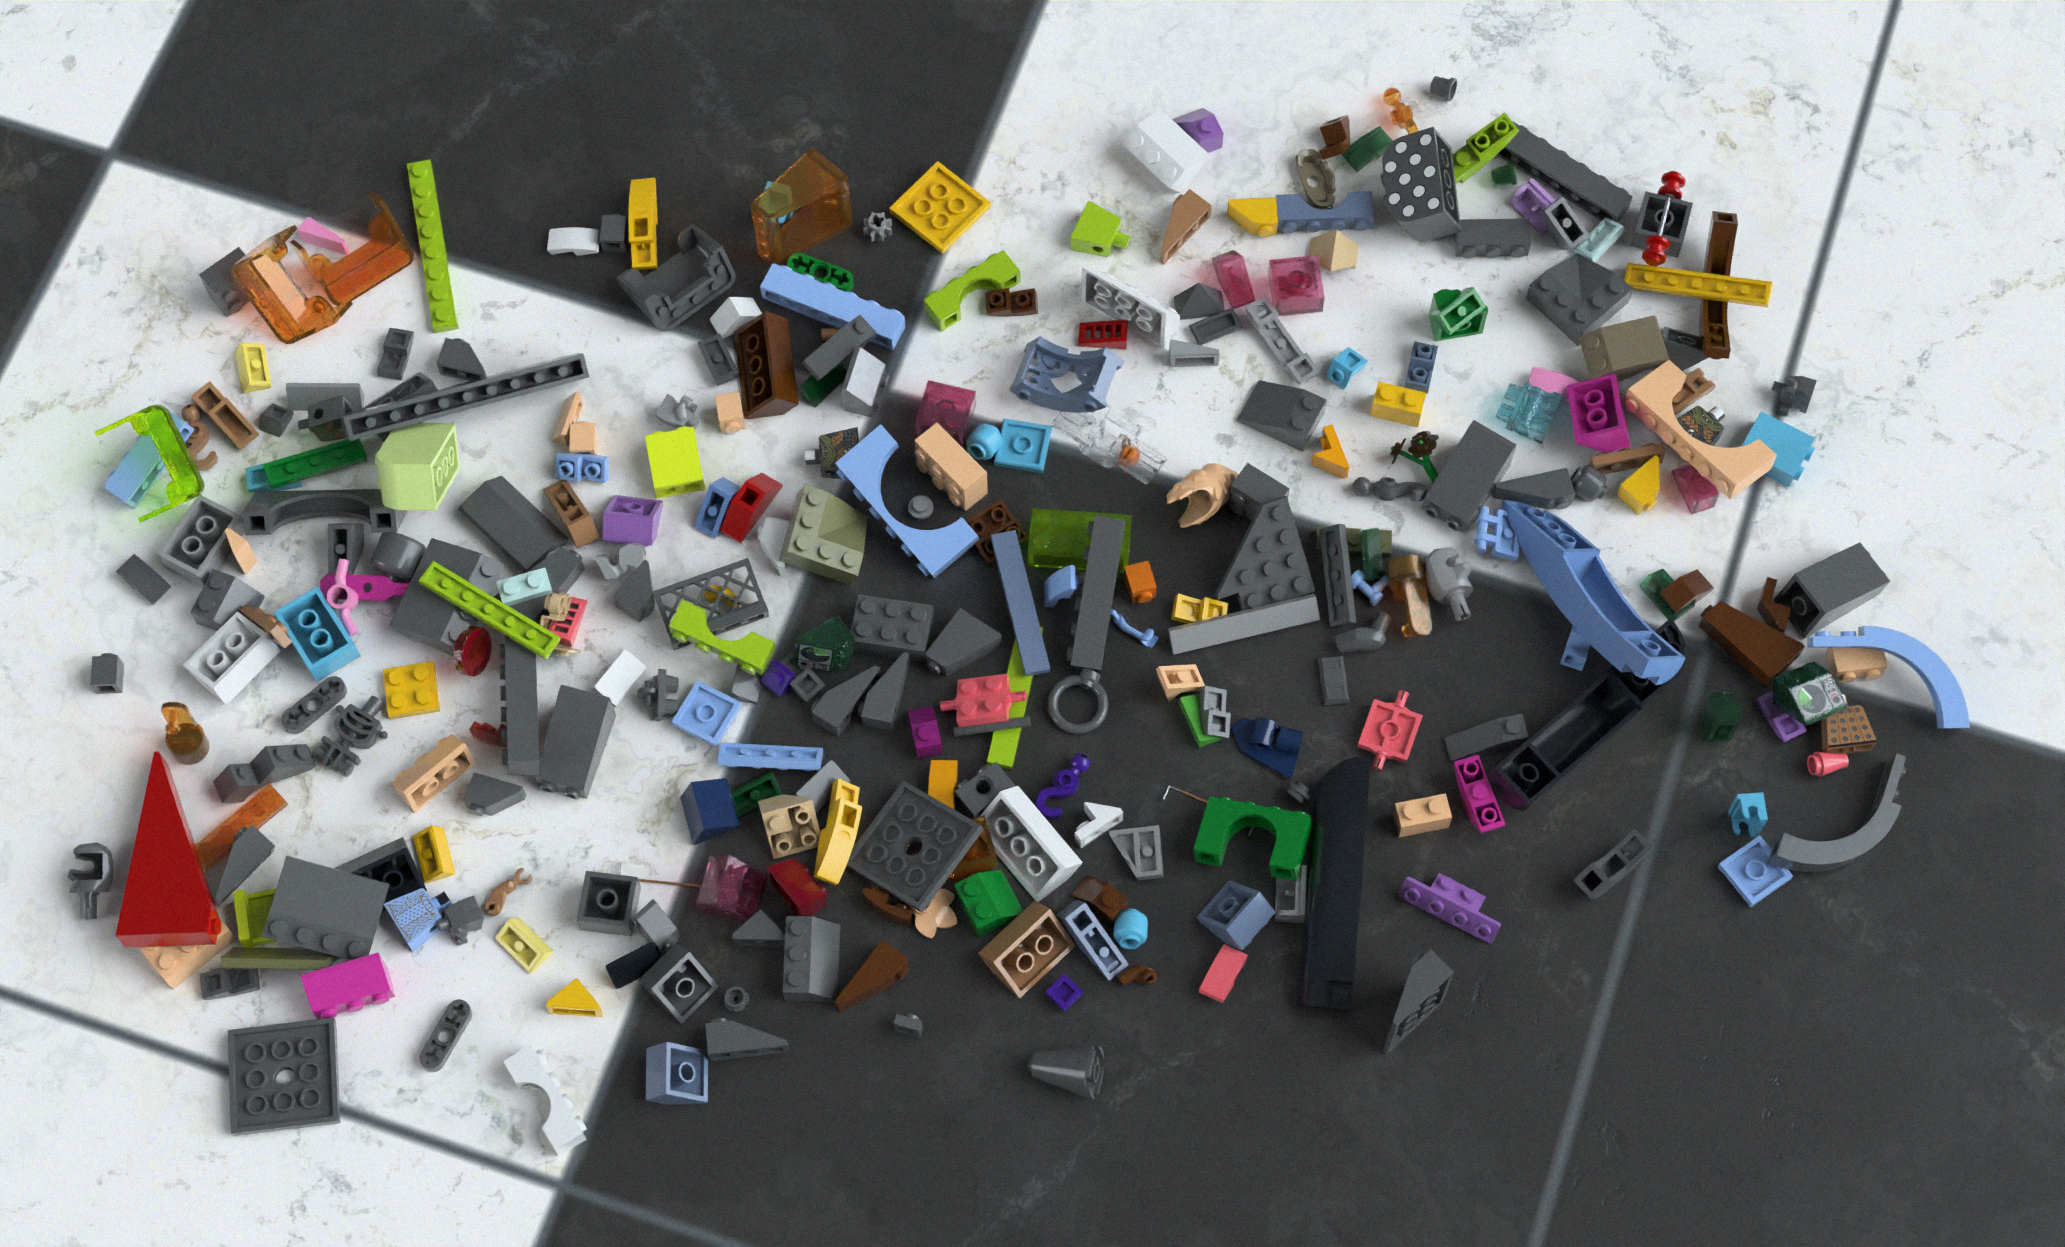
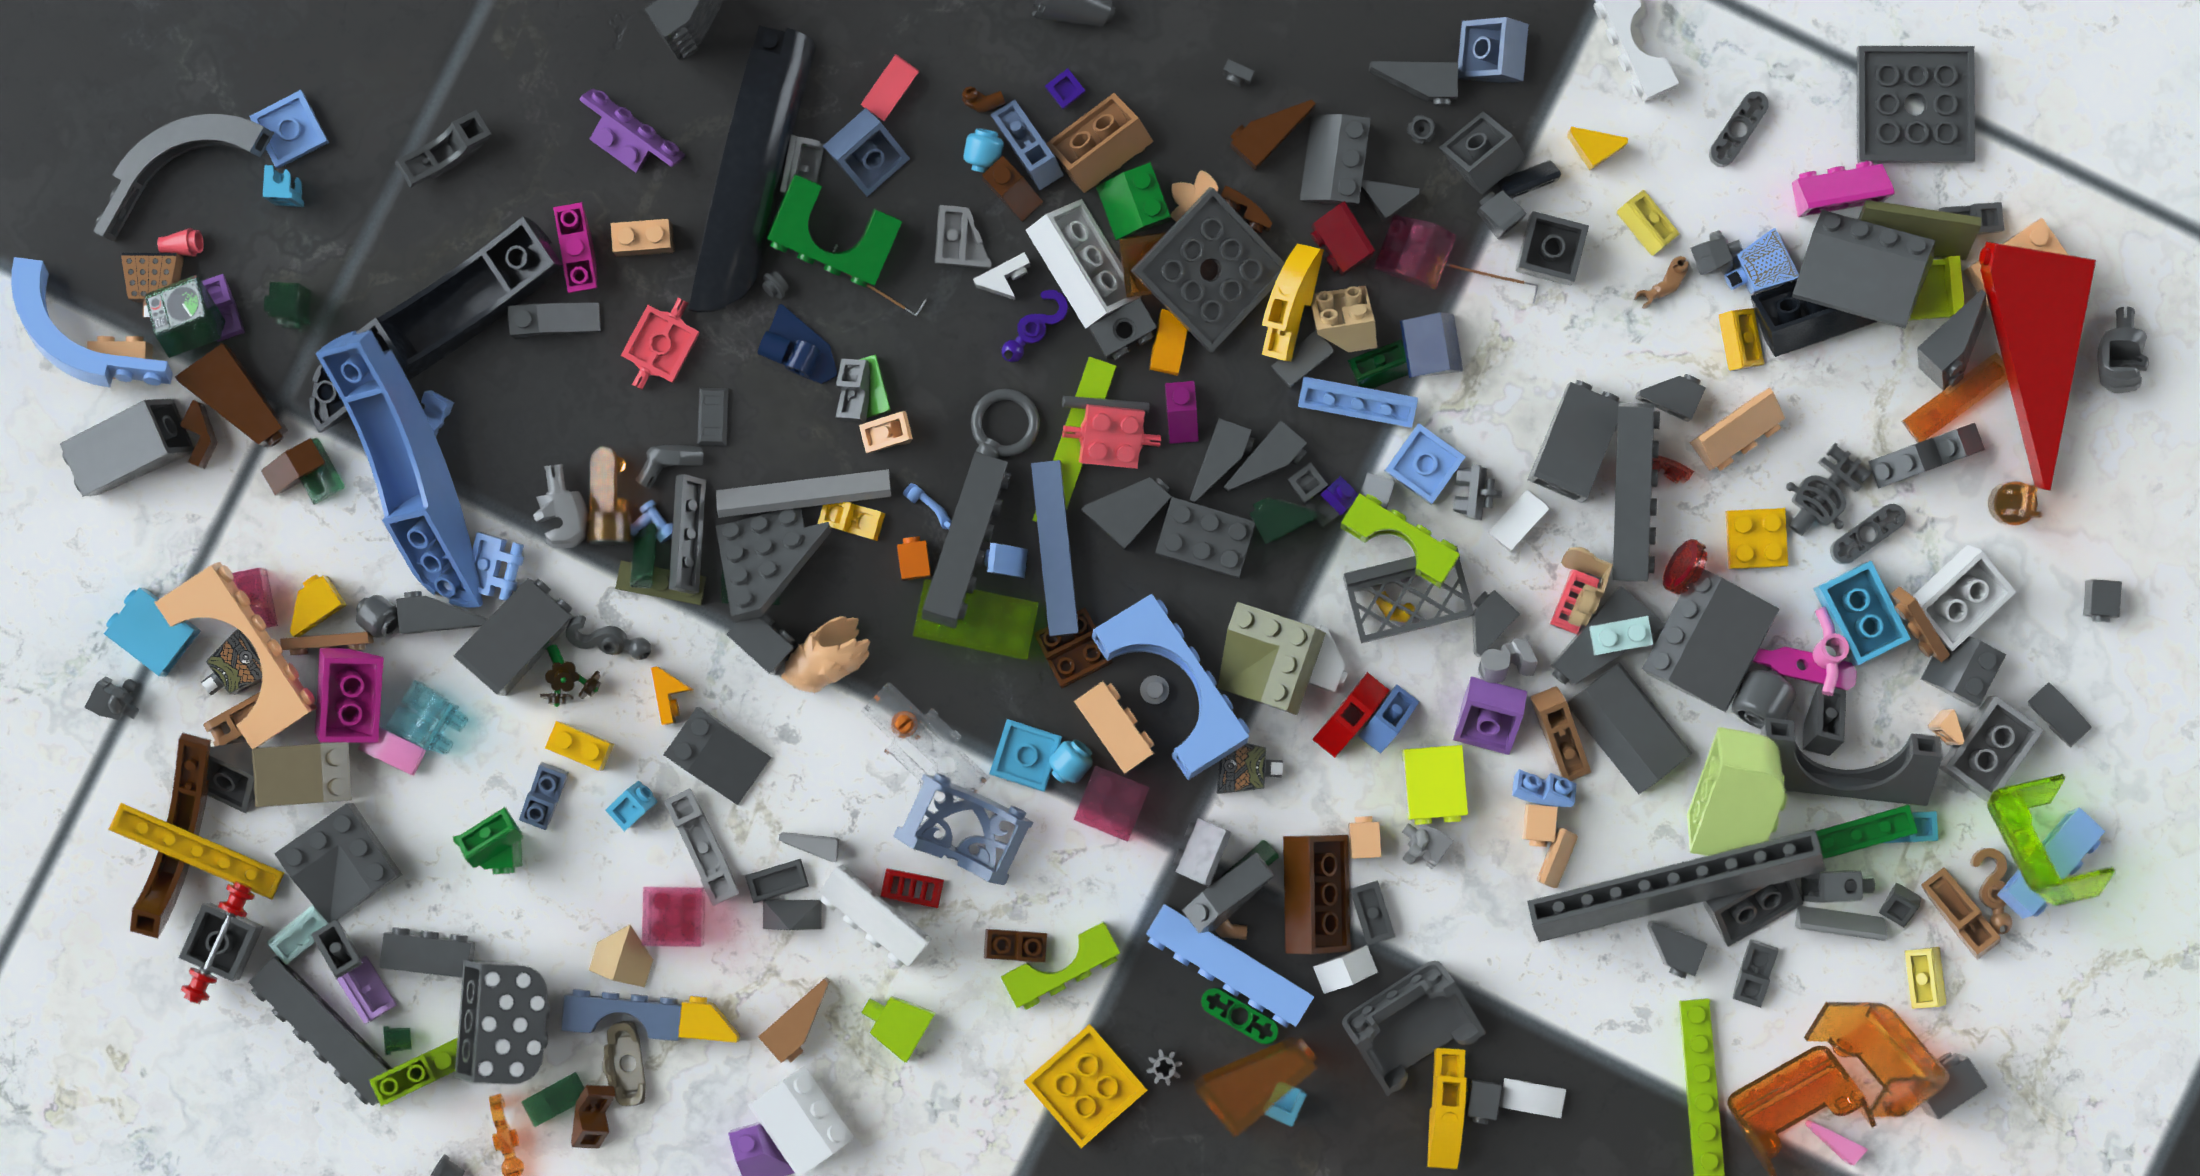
camera: 170 degrees left, 20 degrees up
(489, 610) = (1663, 605): lime tile -> none
(1233, 278) = (746, 940): clear pink slope -> none

